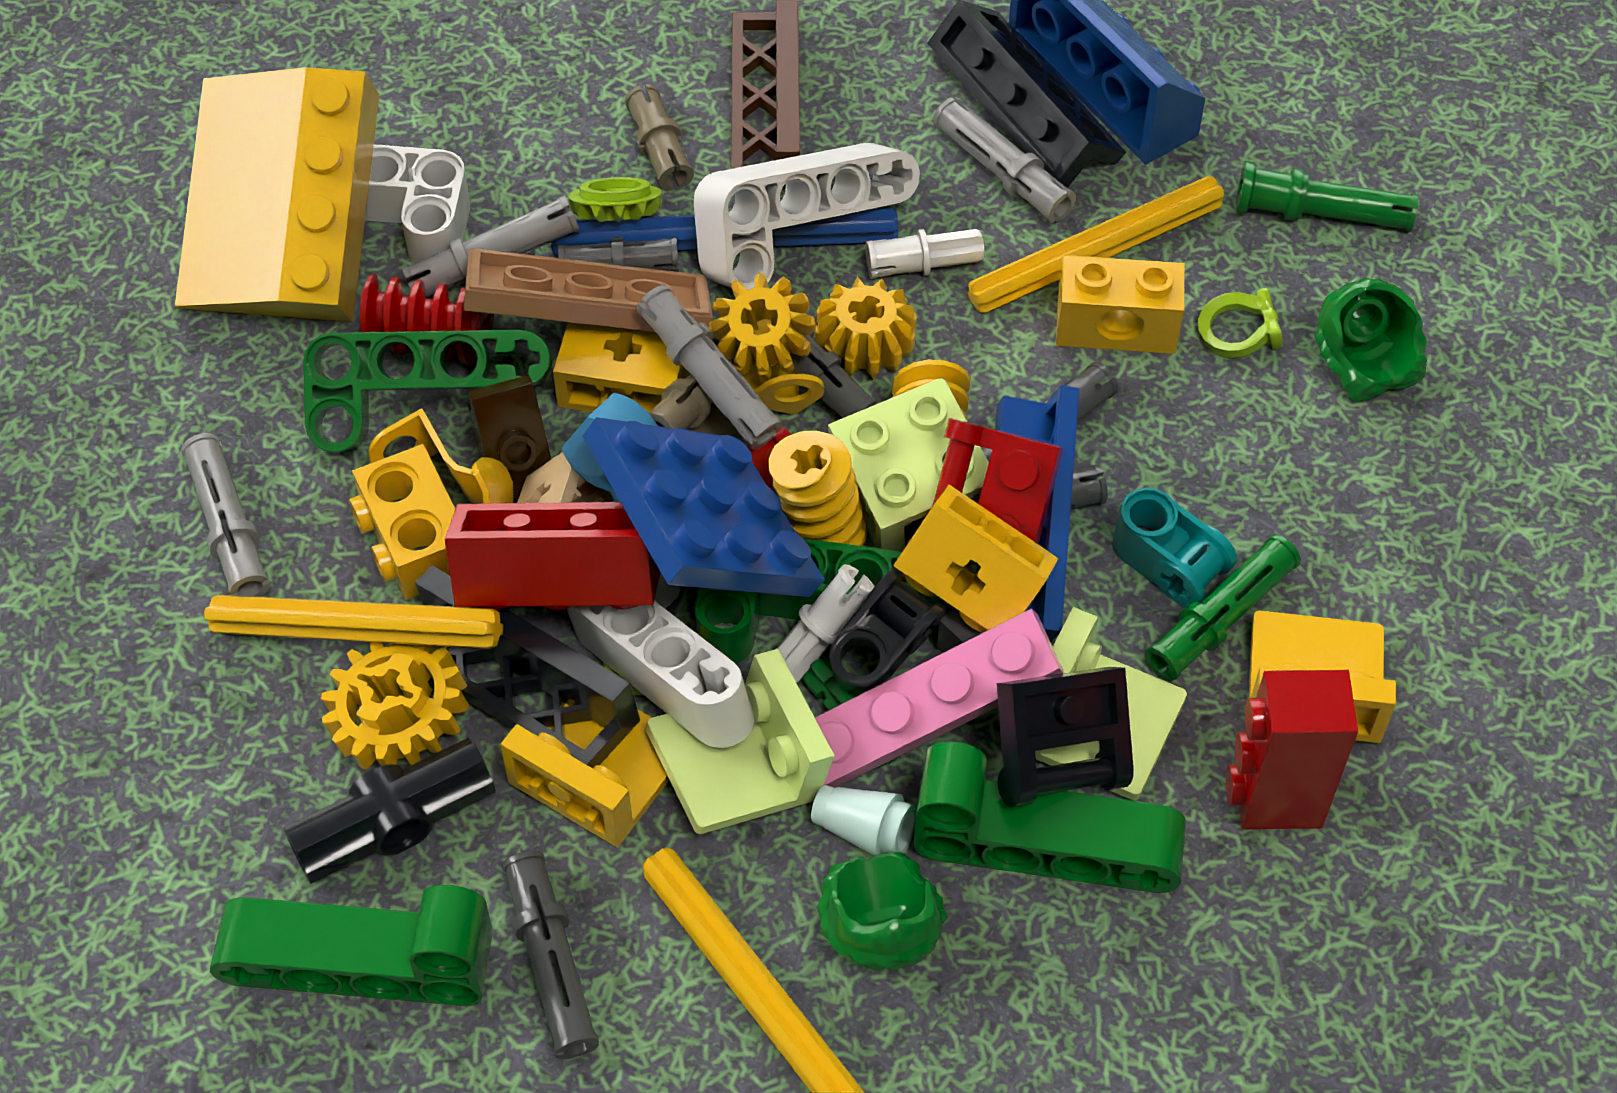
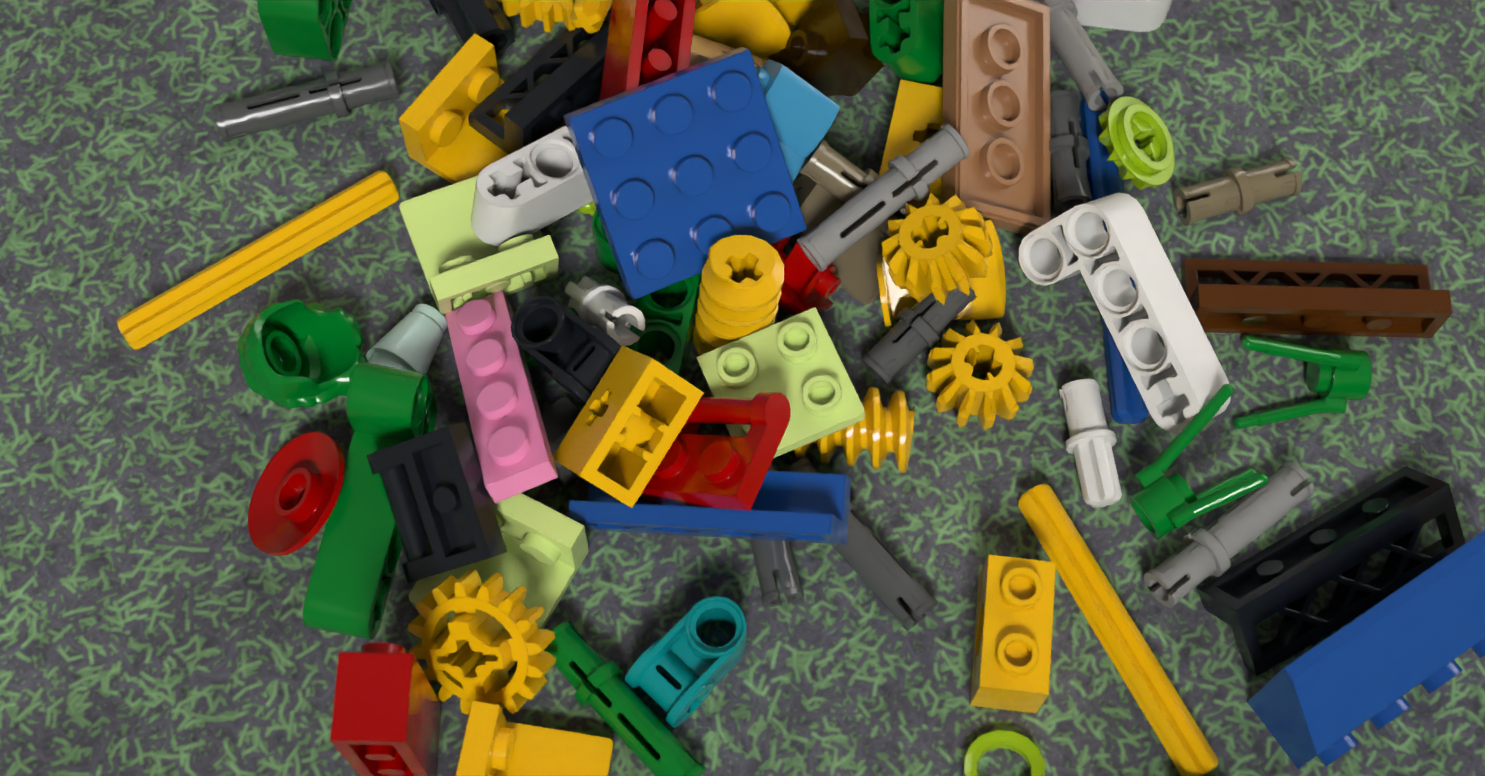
camera: 90 degrees right, 10 degrees up
(846, 82) = (1331, 372): none -> green plant
(980, 191) = (1170, 501): none -> green plant
(1038, 933) = (296, 493): none -> red dish
(1189, 704) = (482, 642): none -> yellow gear

